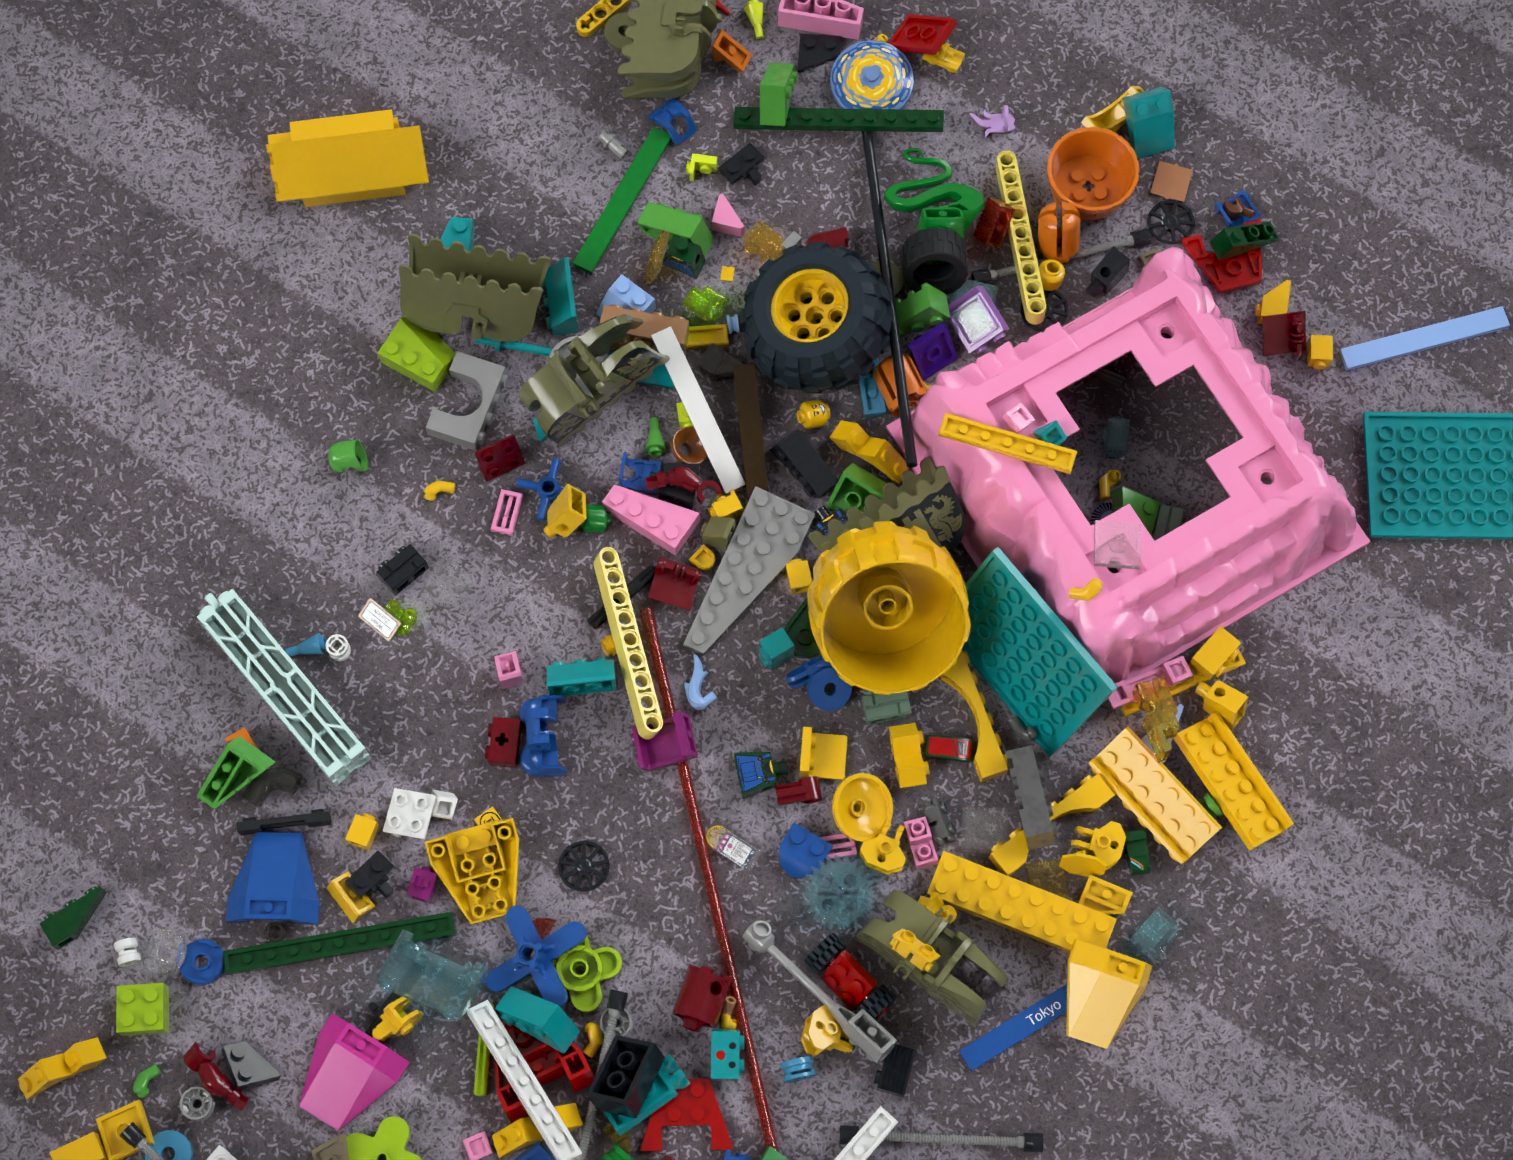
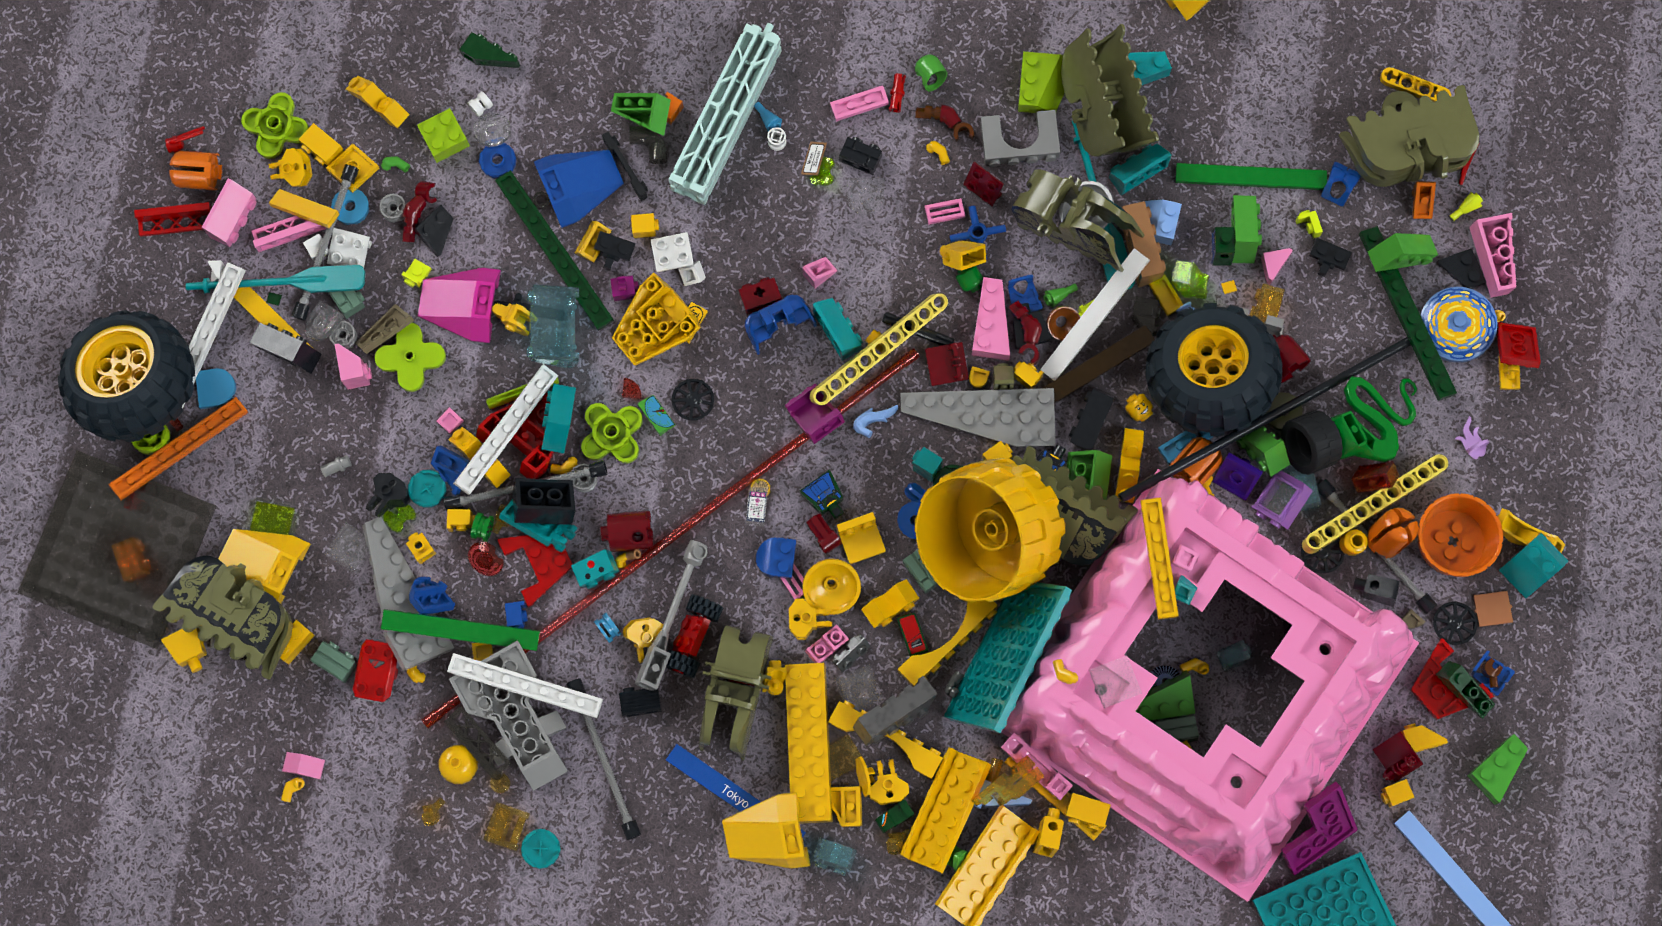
camera: 70 degrees right, 5 degrees up
(287, 1111) = (416, 273): none -> neon yellow bracket
(343, 545) = (859, 103): none -> bright pink plate
(352, 502) = (897, 93): none -> red pin
(407, 461) = (947, 116): none -> reddish brown piece
(545, 952) = (605, 395): blue piece -> none
(583, 912) = (656, 415): none -> slope
(610, 141) = (1296, 143): light grey pin -> none
(656, 257) = (1210, 224): clear yellow tile -> none
(838, 913) = (772, 589): clear light blue gear -> none
(906, 943) = (725, 661): yellow hinge -> none
(1124, 722) = (994, 770): none -> clear yellow pin
(1163, 862) = (896, 842): none -> clear yellow piece
(1326, 422) = (1331, 825): none -> magenta plate
(1334, 247) = (1498, 768): none -> bright green wedge

